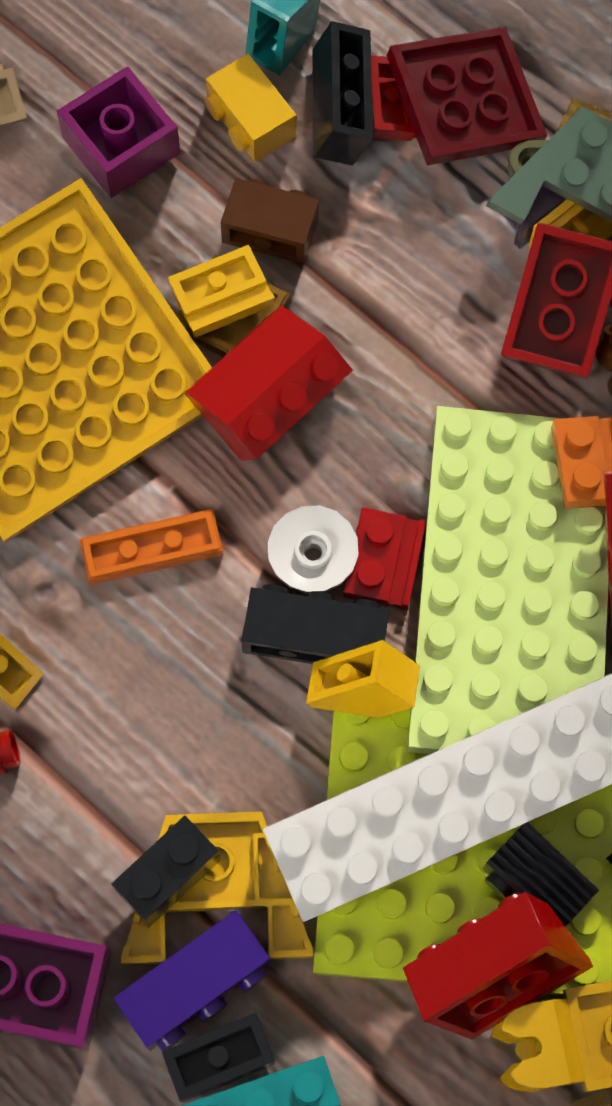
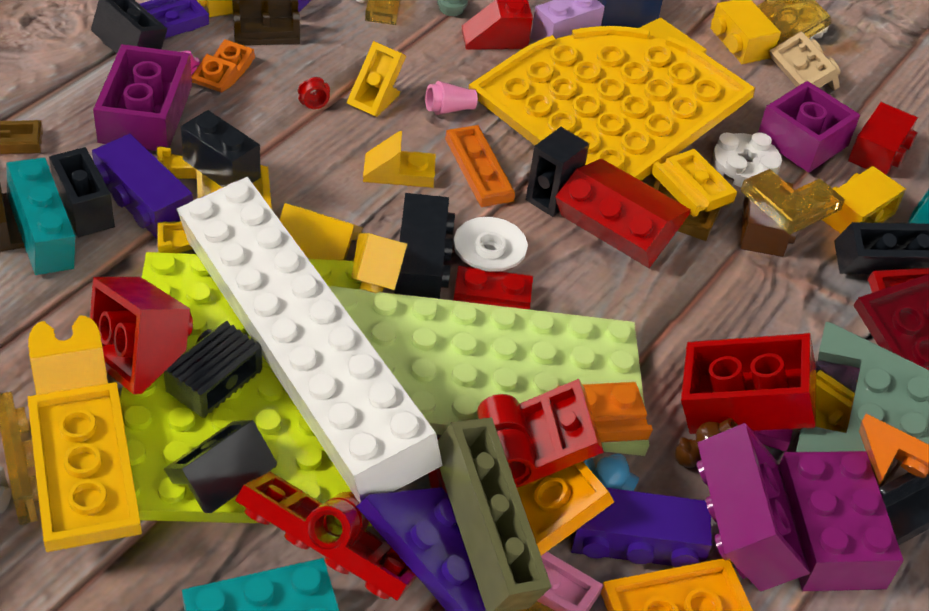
camera: 80 degrees right, 25 degrees down
(25, 573) = (448, 98): none -> bright pink cone
(126, 39) = (884, 139): none -> red brick
(153, 648) = (392, 166): none -> yellow slope
(160, 197) = (733, 150): none -> white plate
(206, 448) = (552, 166): none -> black brick
(281, 757) = (319, 234): none -> yellow panel
(285, 189) = (792, 207): none -> clear yellow plate

